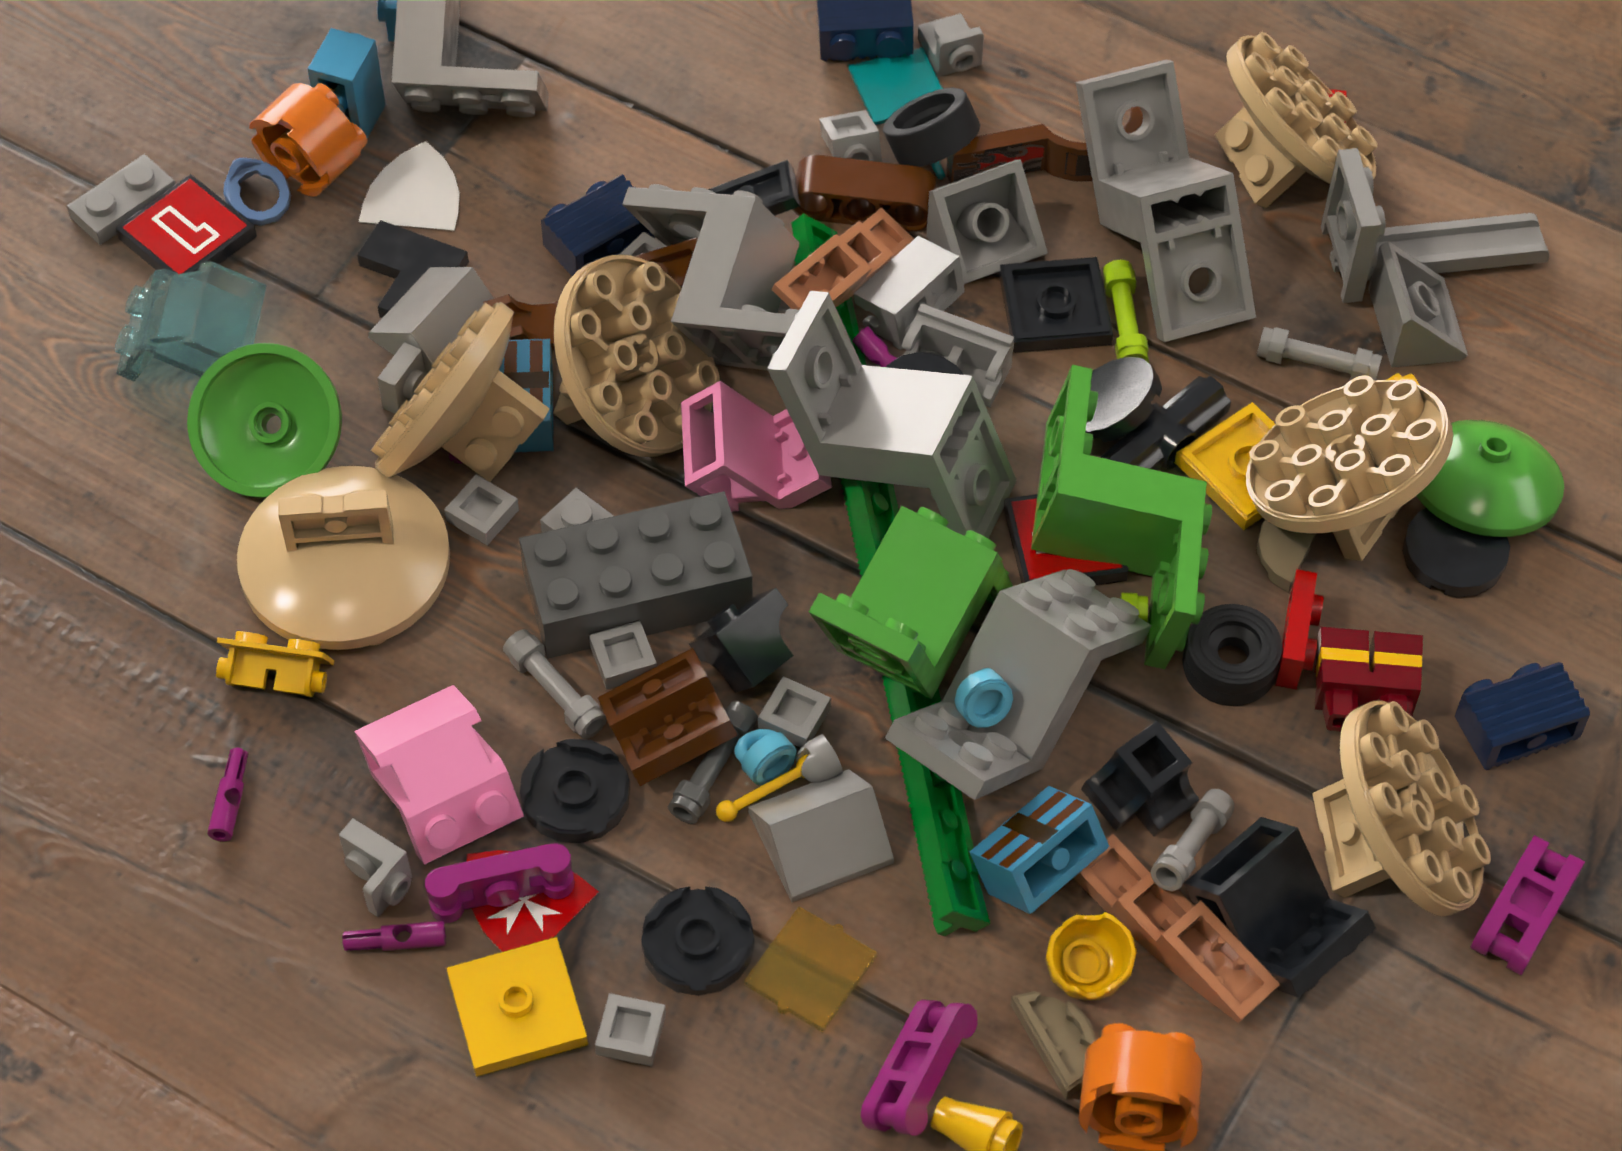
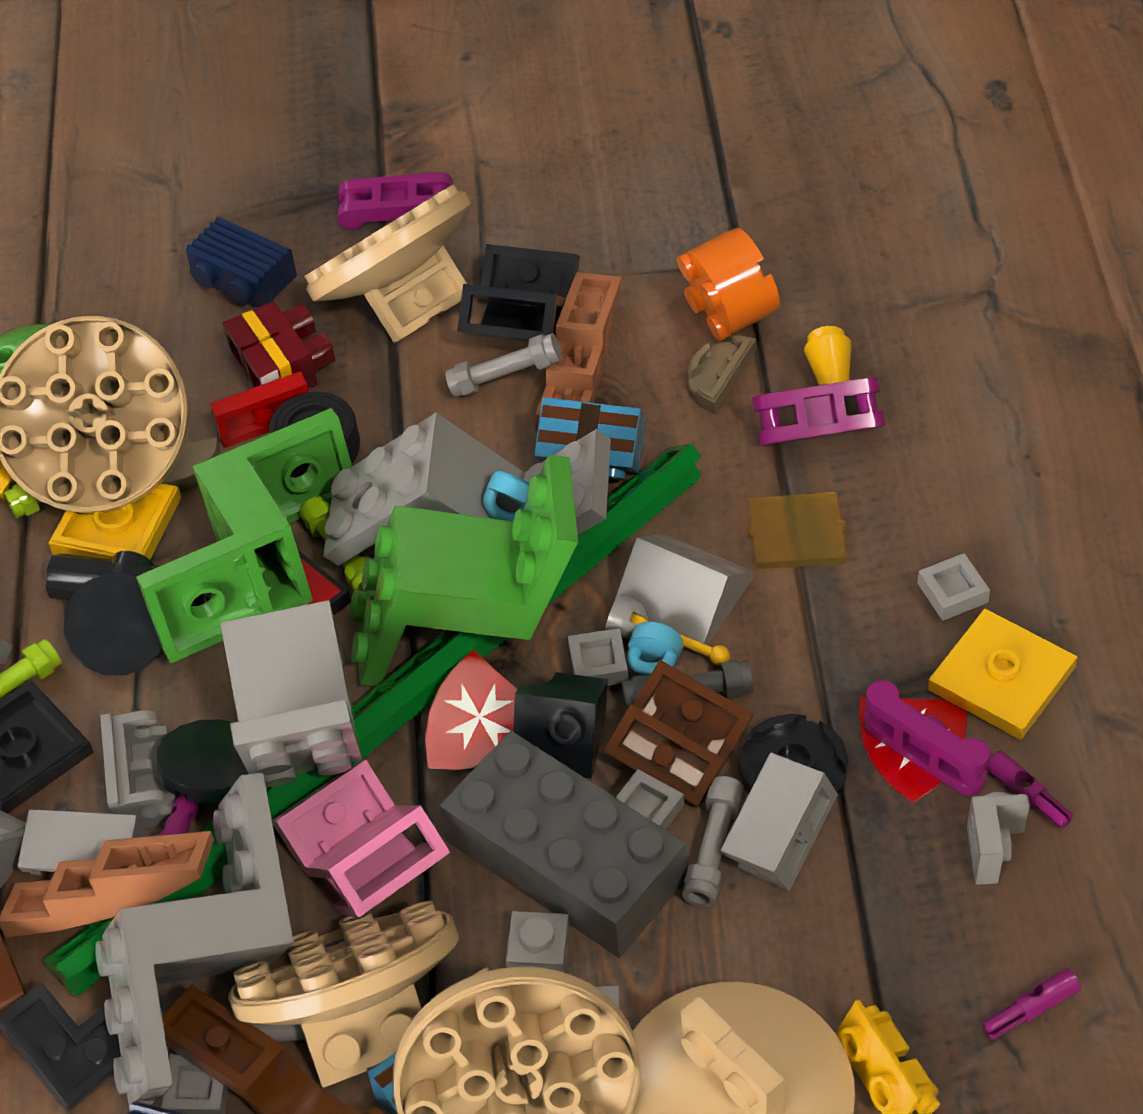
camera: 120 degrees left, 5 degrees down
(440, 773) = (872, 847): bright pink piece -> none
(517, 719) = (780, 821): none -> light grey hinge
(697, 940) = (841, 605): black tile -> none
(799, 580) = (469, 715): none -> sticker
(1091, 956) = (648, 368): yellow hair -> none
(1144, 781) = (479, 411): black brick -> none

